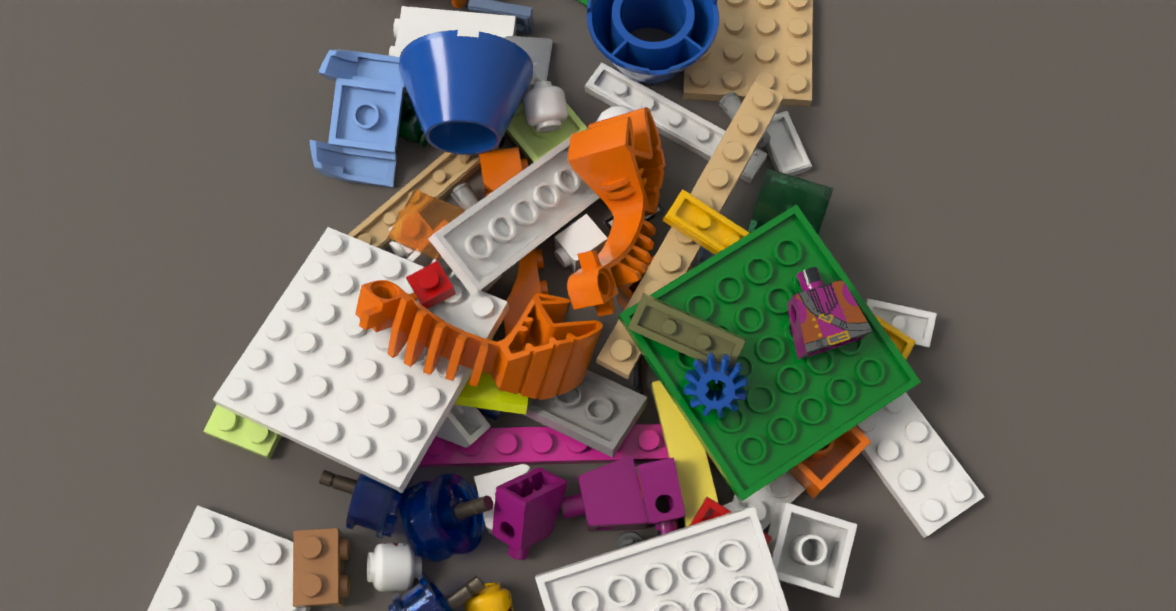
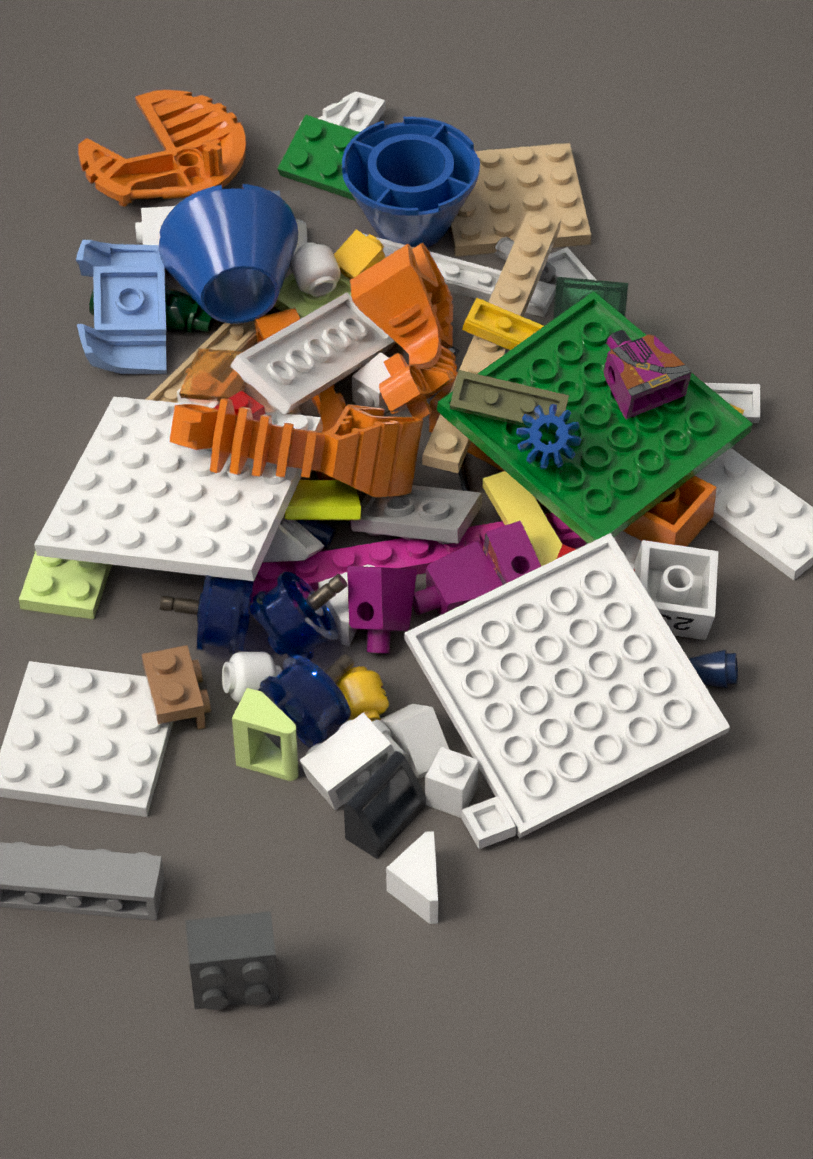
camera: 10 degrees left, 20 degrees down
(590, 97) = (359, 254): none -> yellow brick

